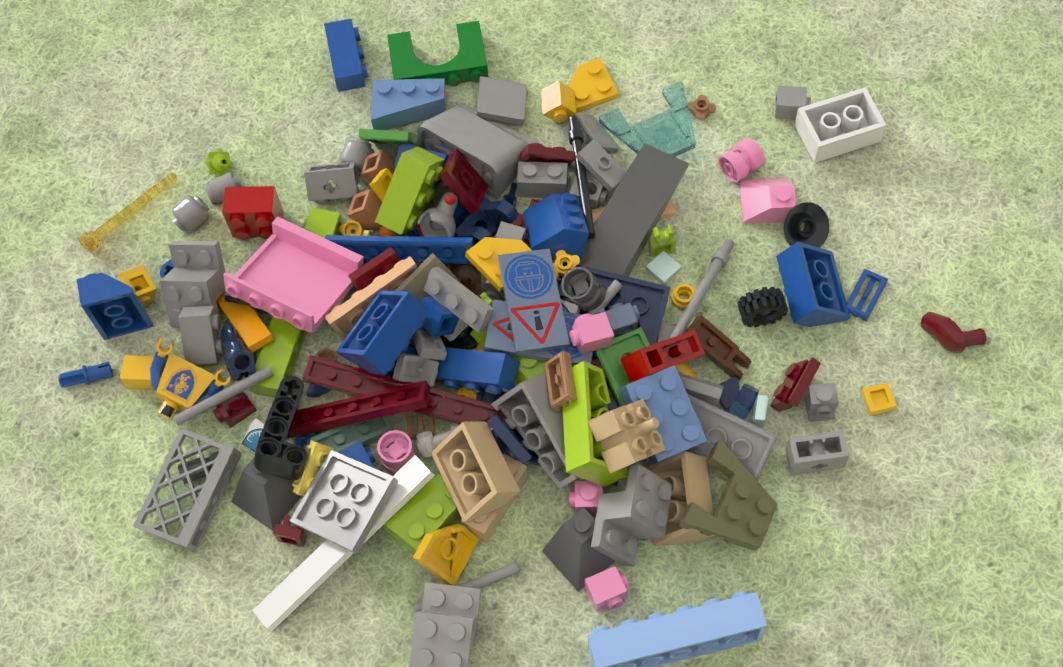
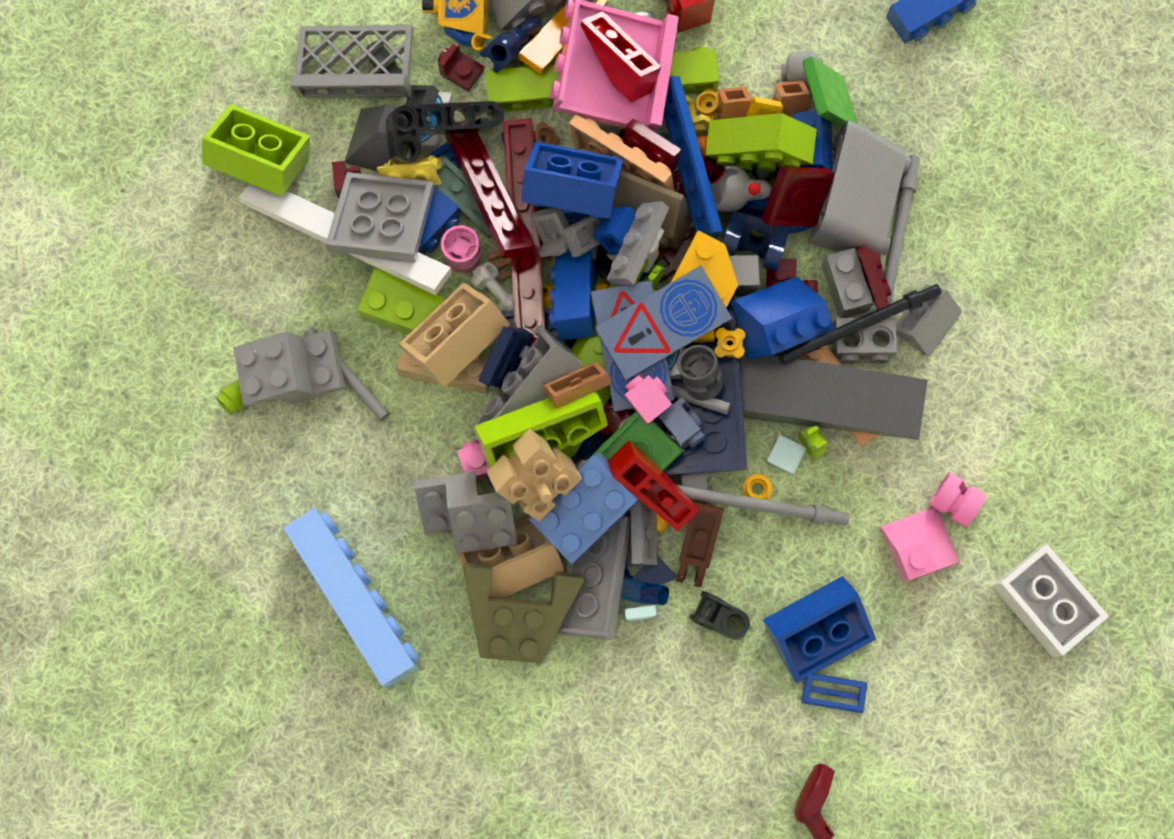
camera: 65 degrees right, 15 degrees up
(223, 395) = (460, 51): light grey bar -> none
(232, 595) = (255, 149): none -> lime brick
(246, 444) = (423, 95): none -> dark grey tile
(295, 265) = (622, 59): none -> red slope
(342, 174) = (757, 56): light grey brick -> none
(406, 101) = (893, 94): medium blue wedge -> none
(446, 552) = (369, 338): yellow plate -> none
(464, 67) = (972, 145): green arch -> none
(501, 100) = (937, 200): light grey tile -> none
(510, 197) = (811, 256): dark blue hand -> none
(558, 102) = (957, 265): yellow brick -> none
(572, 550) = (417, 462): dark grey slope -> none
(592, 85) = (1000, 294): yellow plate -> none
(601, 165) = (881, 341): light grey plate -> none
(607, 589) = (386, 514): bright pink brick -> none
(666, 131) = (964, 400): clear light blue wing -> none
(697, 111) = (1020, 440): medium nougat plate -> none
(762, 307) = (767, 579): black tyre -> none
(778, 356) = (718, 616): none -> pearl dark grey piece
(788, 101) = (1064, 535): light grey brick -> none
(795, 384) = (682, 642): dark red plate -> none
(815, 225) = (889, 610): black dish -> none
(817, 452) = (609, 688): light grey brick -> none
(821, 401) = (675, 677): light grey brick -> none
(878, 399) = (703, 740): yellow plate -> none

